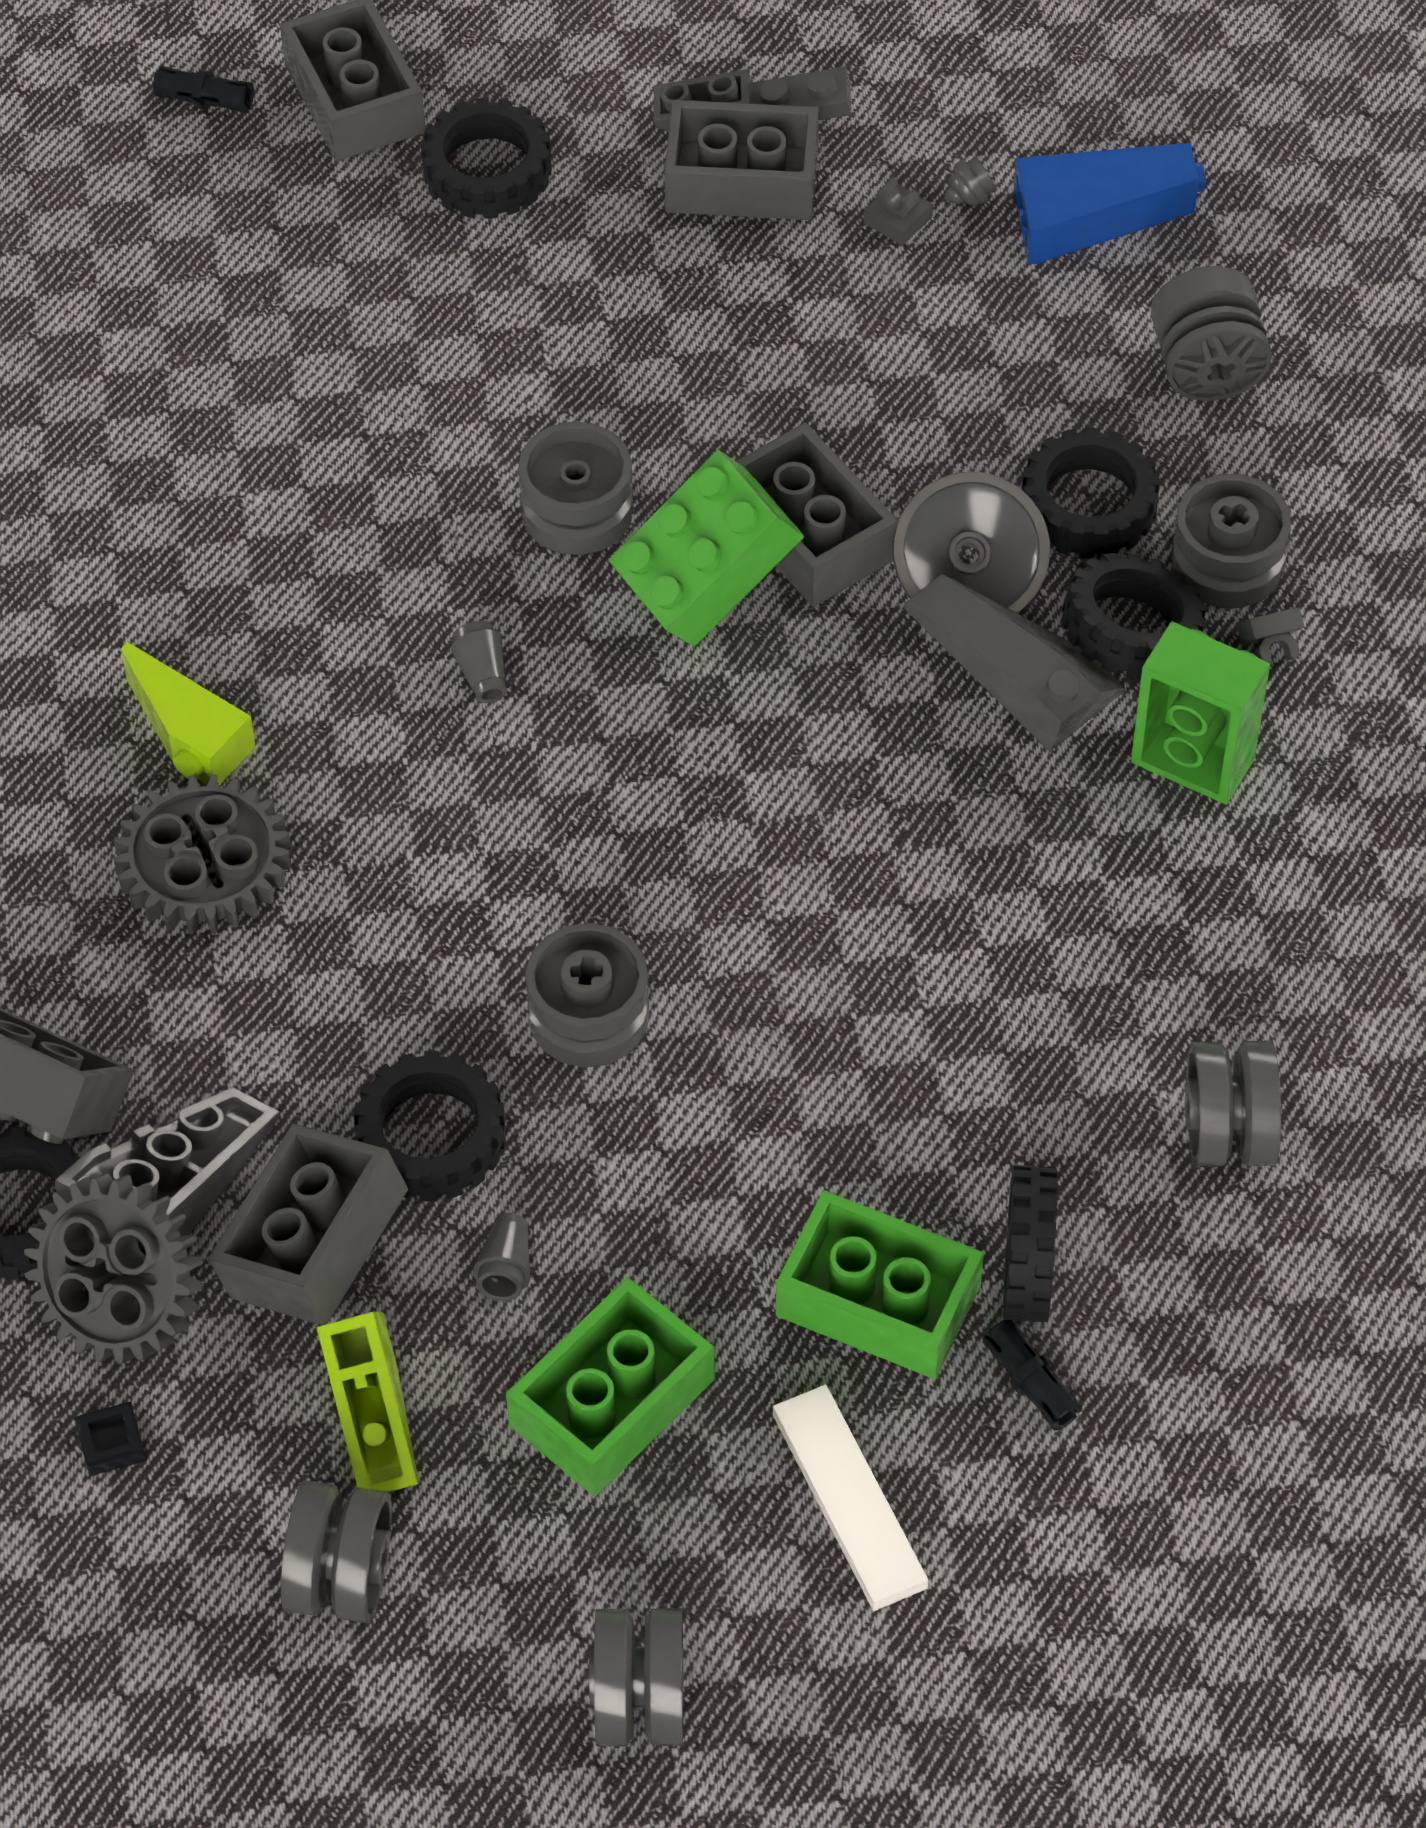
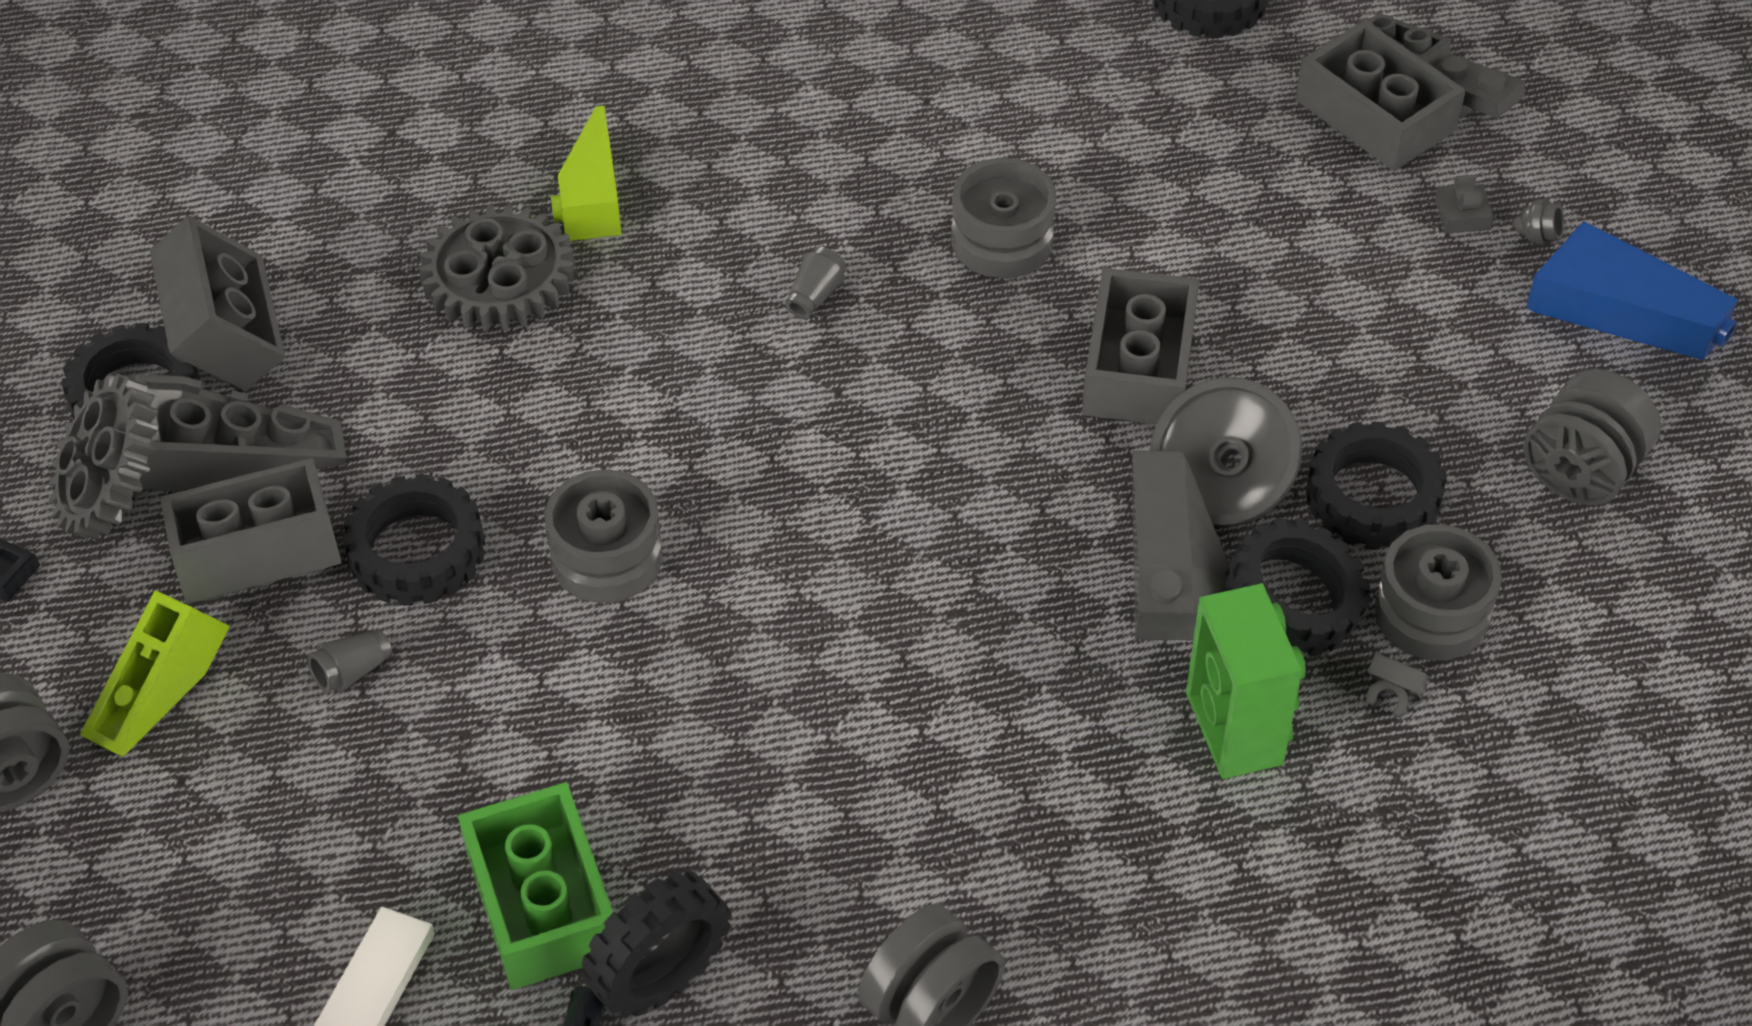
camera: 45 degrees right, 5 degrees down
(611, 1386) = (289, 795): bright green brick -> none
(706, 548) = (1030, 310): bright green brick -> none

